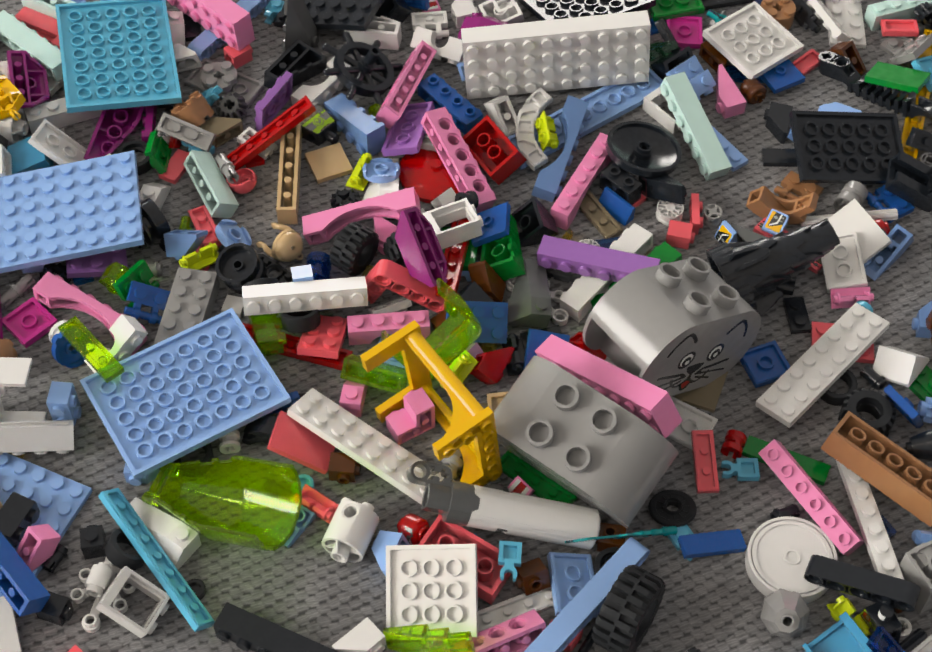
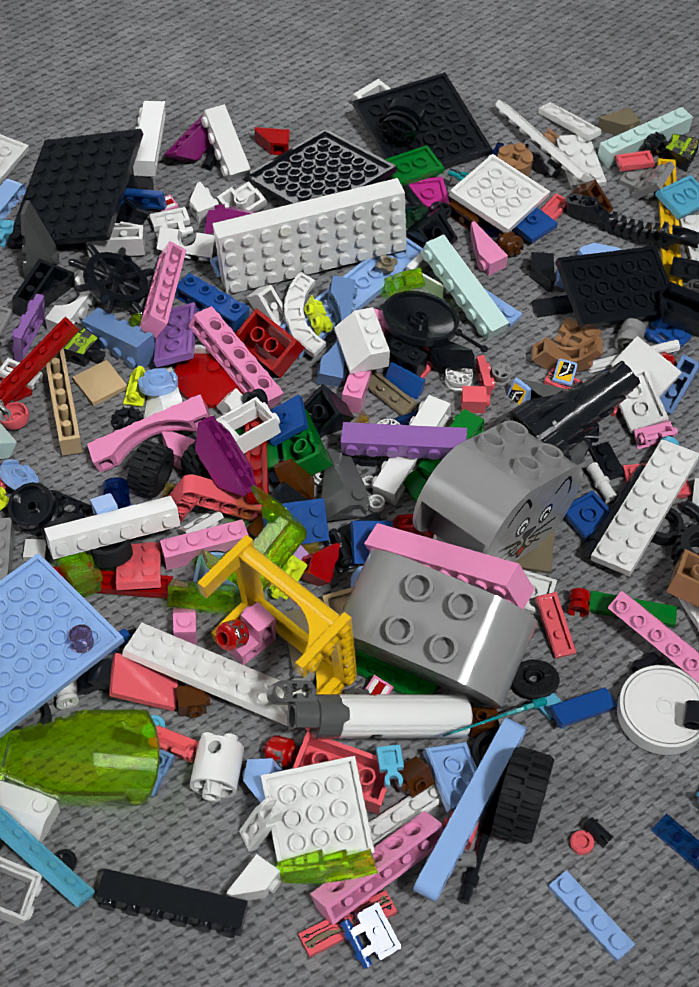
camera: 15 degrees left, 0 degrees up
(254, 386) = (82, 633): none -> clear purple wheel
(282, 245) = (77, 478): tan hair -> none
(376, 589) = (260, 823): none -> white hinge
(391, 413) = (232, 635): none -> red head
(581, 162) = (362, 341): none -> white slope
(625, 92) = (386, 264): none -> dark tan plate
(638, 111) = (404, 281): none -> clear neon green brick
(681, 168) = (484, 348): none -> black hinge
(695, 47) = (444, 207): none -> black wheel
(700, 79) = (457, 238): light blue plate -> none
(744, 468) = (594, 625): medium azure plate -> none
(766, 384) = (596, 536): none -> black bar
(782, 605) = (671, 765): light grey cone -> none
(786, 334) = (601, 482): none -> white pin
(897, 77) = (646, 210): green tile -> none

